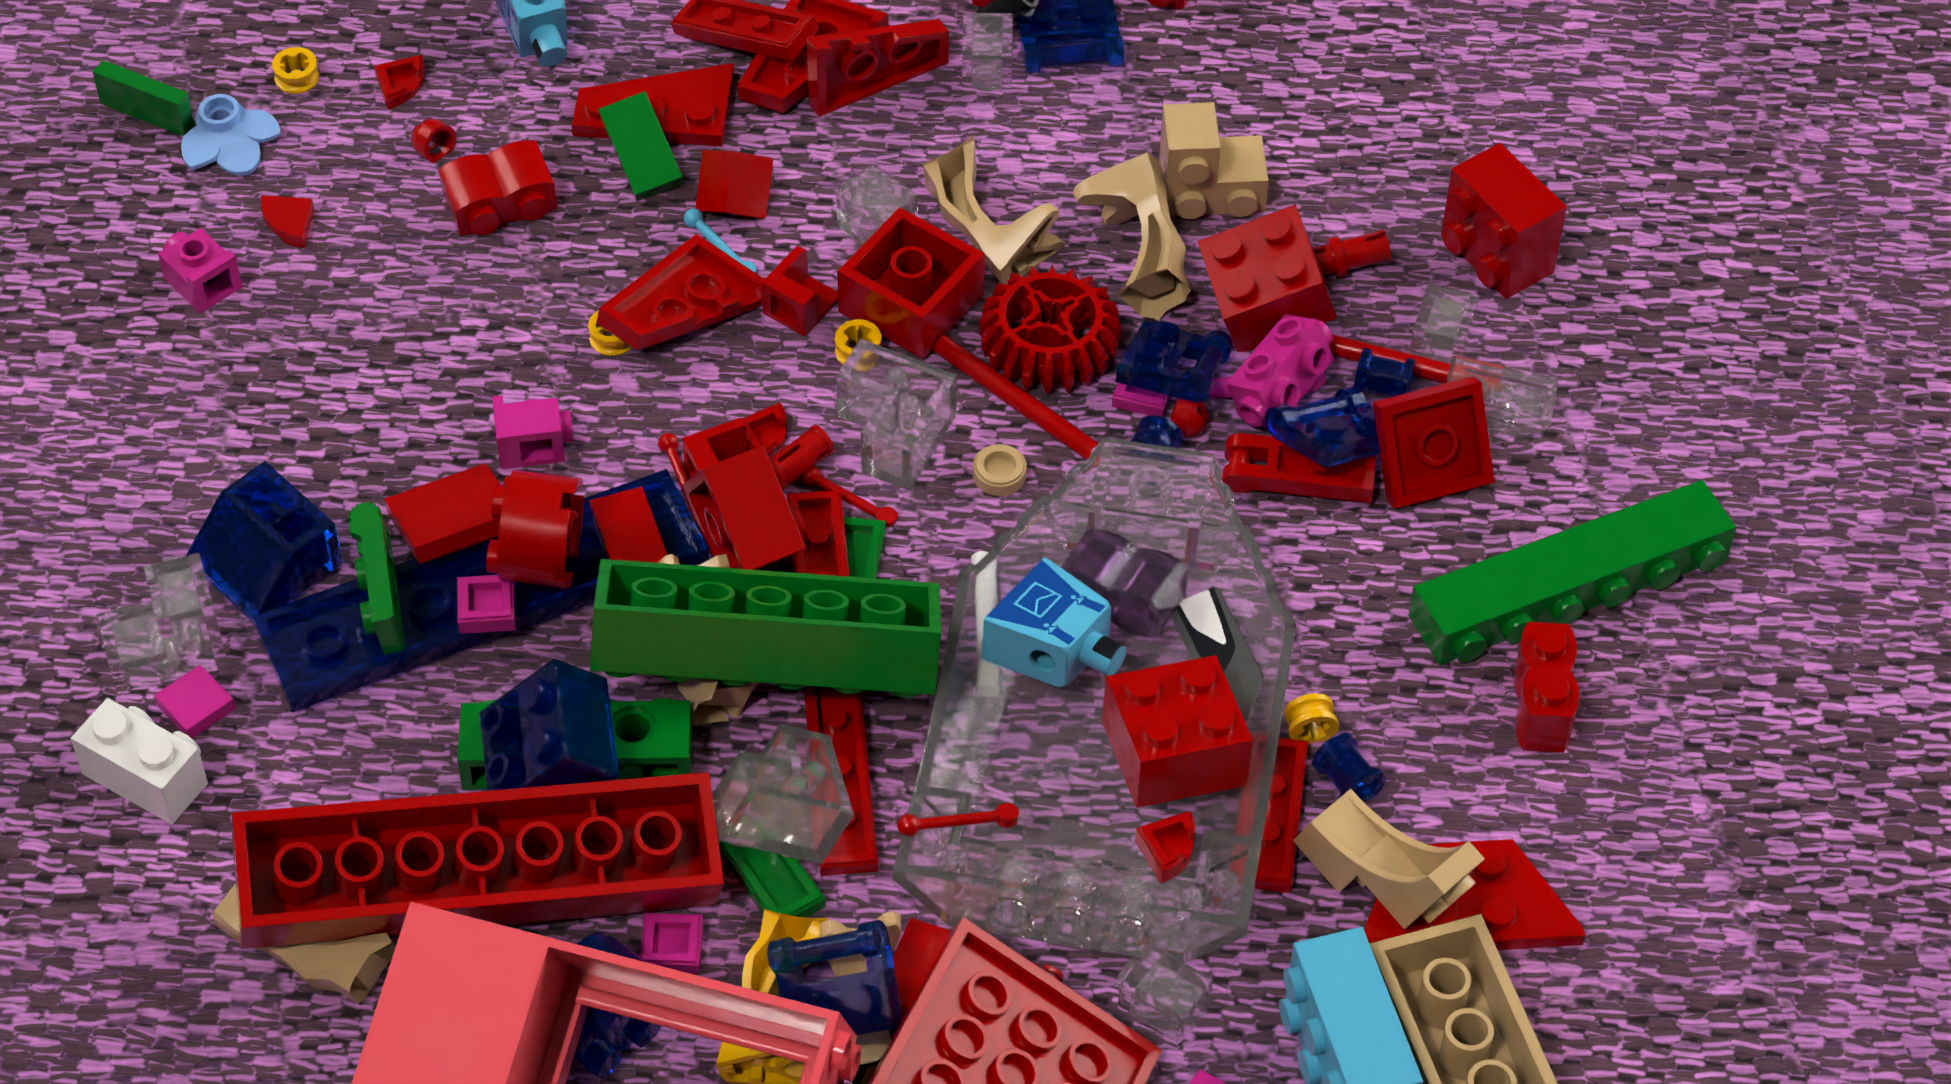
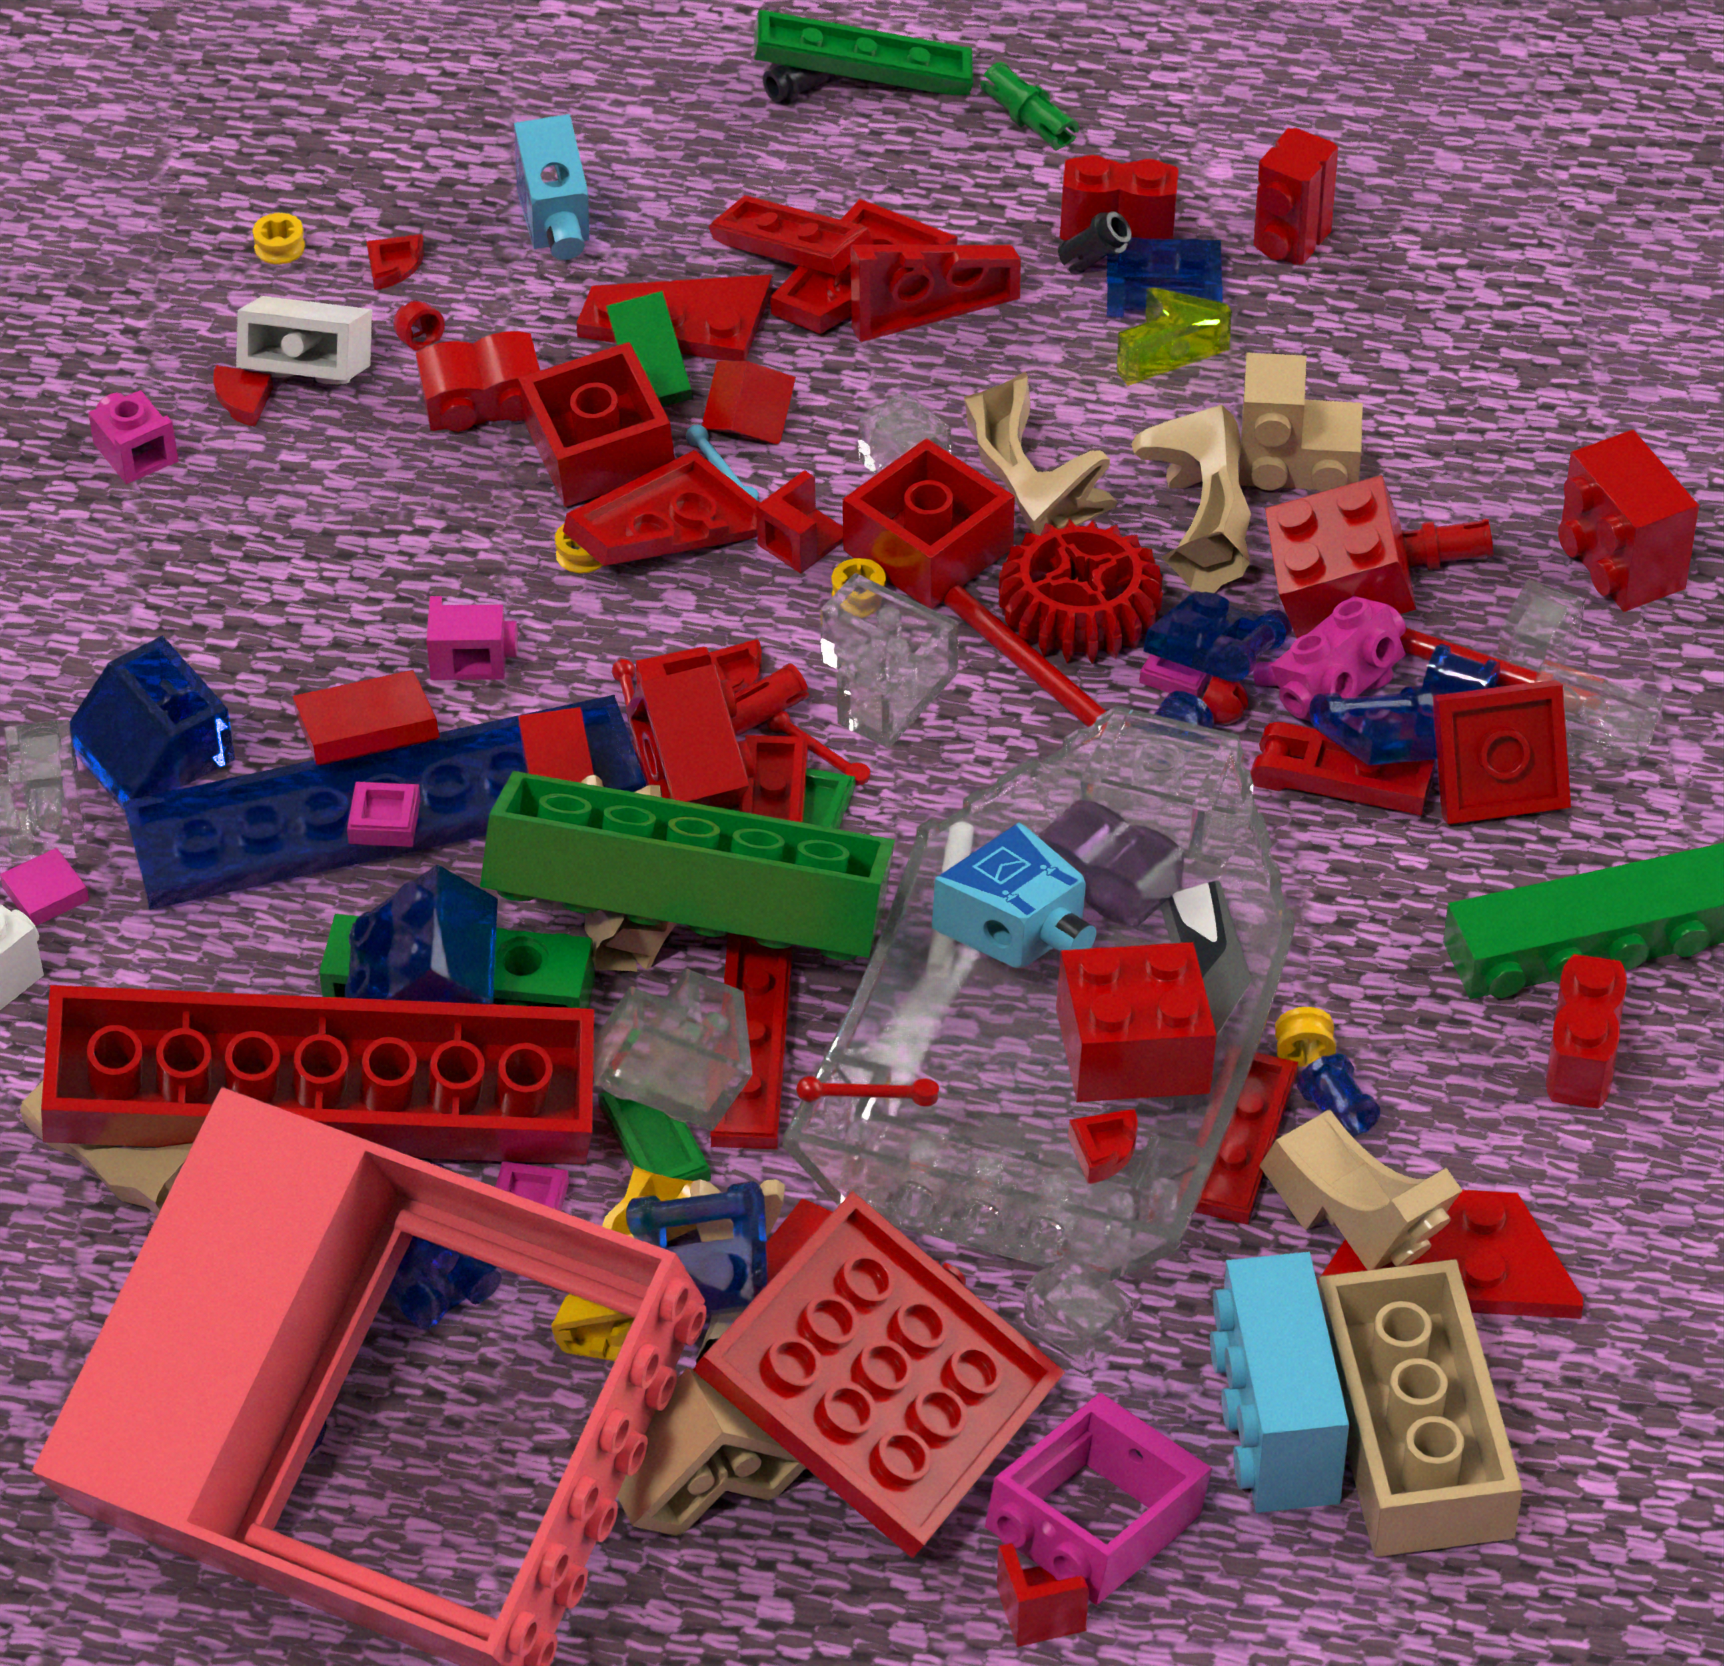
camera: 10 degrees right, 5 degrees down
(143, 98) = (104, 251): green tile -> none
(229, 141) = (191, 300): light blue plate -> none
(337, 164) = (304, 339): none -> white brick
(378, 575) = (266, 772): green hinge -> none
(536, 528) = (449, 735): red brick -> none
(608, 219) = (596, 423): none -> red brick
(987, 51) = (1064, 286): clear brick -> none
(999, 470) = (996, 736): tan tile -> none
(1087, 86) = (1175, 334): none -> clear neon green slope

